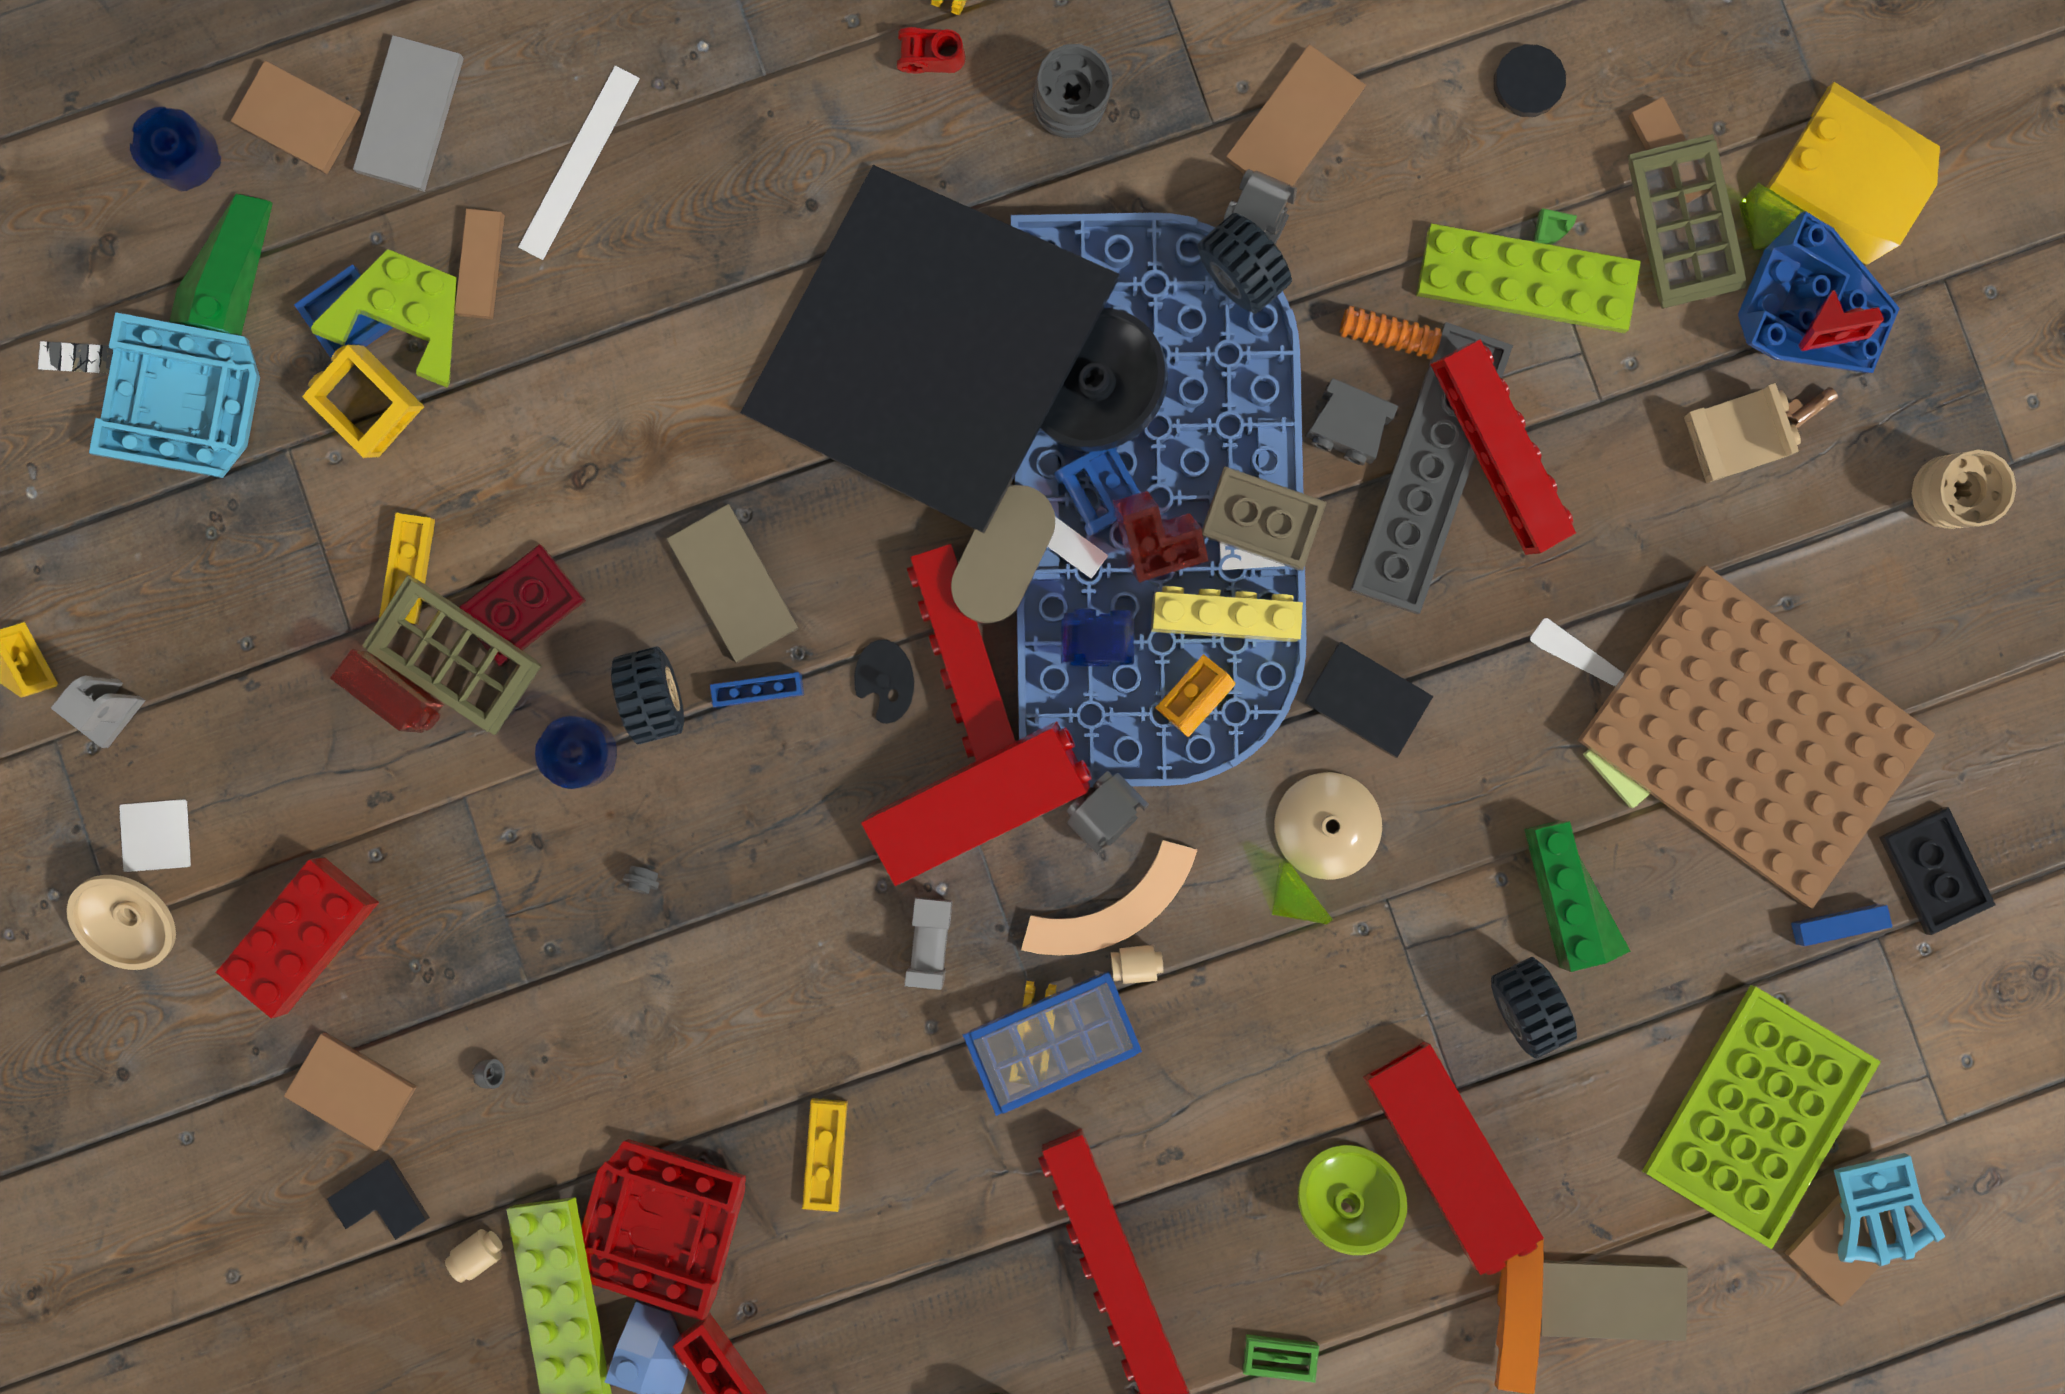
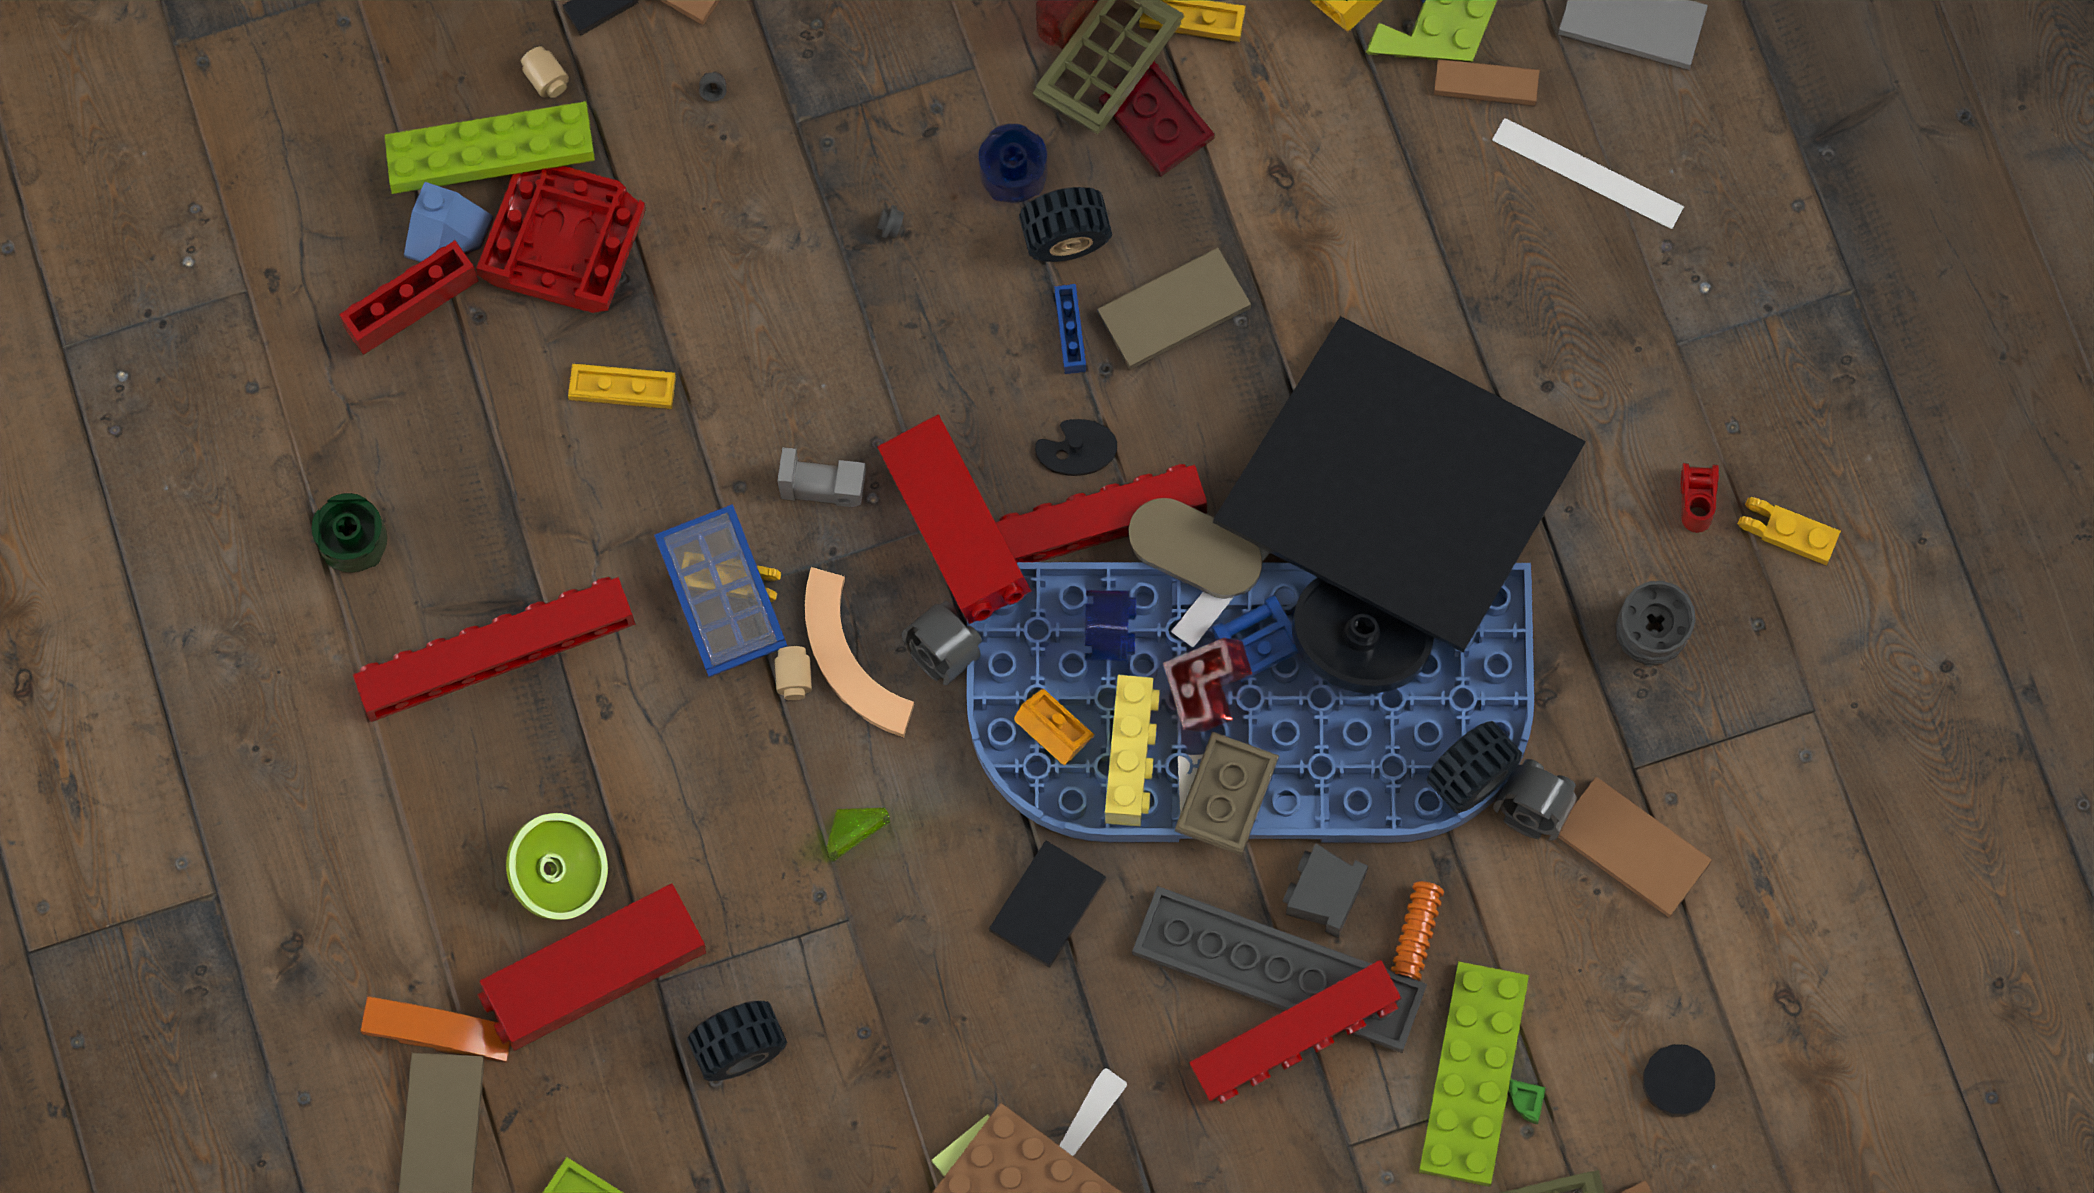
camera: 90 degrees right, 15 degrees down
(1281, 1344) = (399, 833): bright green tile -> none
(1303, 819) = (925, 886): tan dish -> none
(1575, 911) = (841, 1095): green wedge -> none

